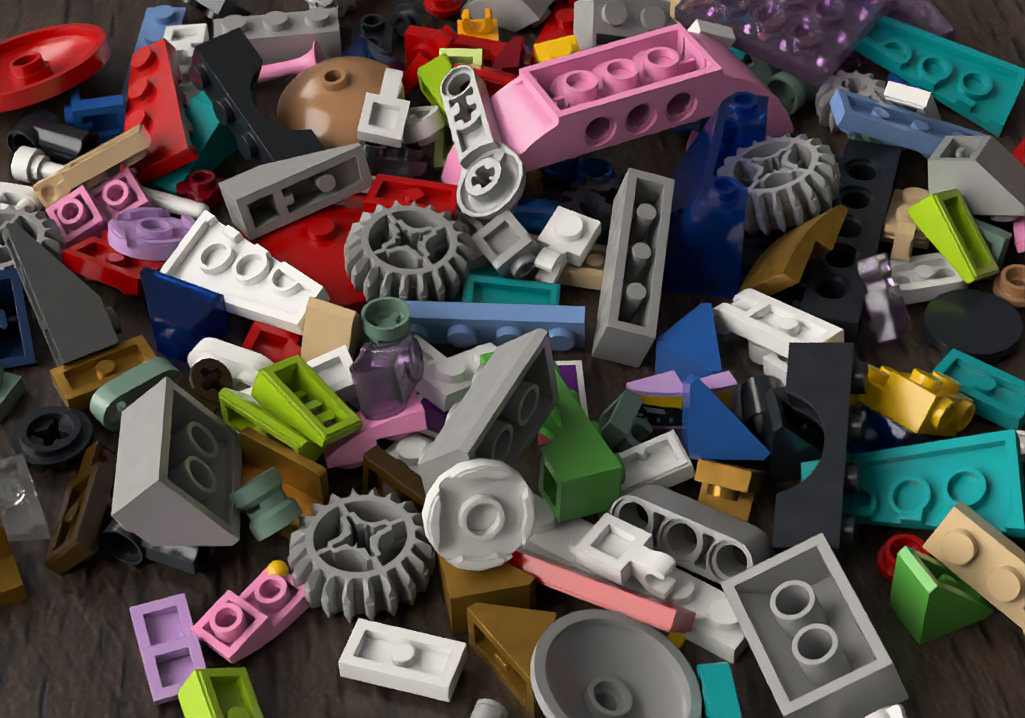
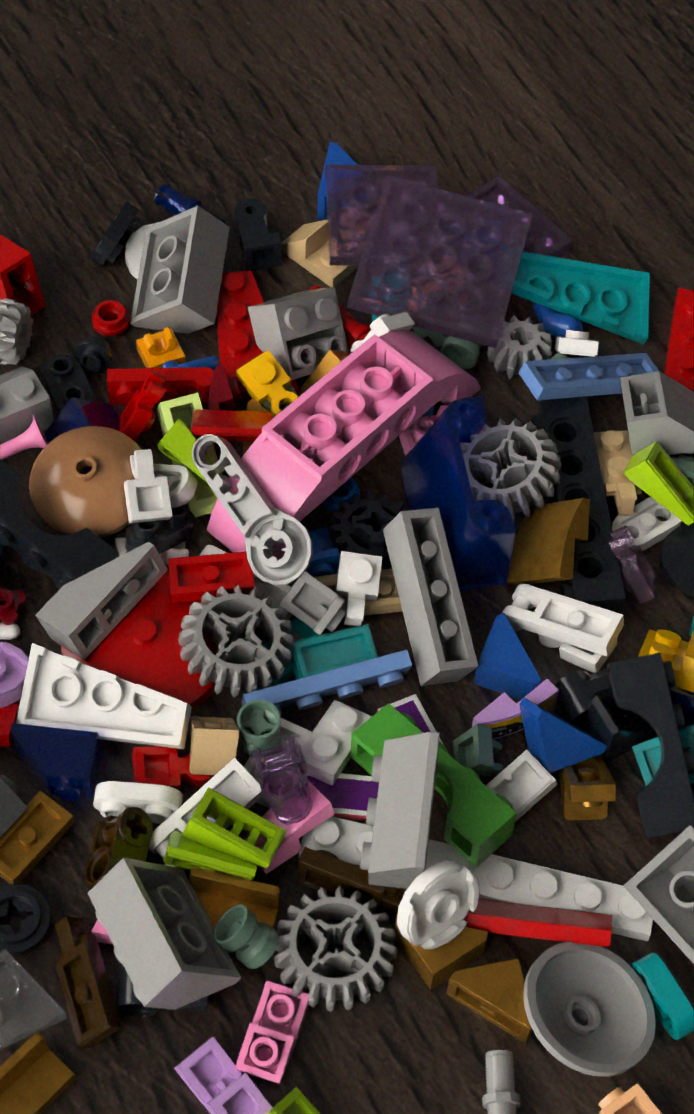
camera: 25 degrees left, 15 degrees up
(126, 388) = (66, 852): sand green beam -> none
(278, 567) = (275, 986): yellow piece -> none
(403, 659) = (412, 1033): white plate -> none
(624, 550) = (538, 886): white plate -> none
(714, 531) = (605, 849): light grey beam -> none

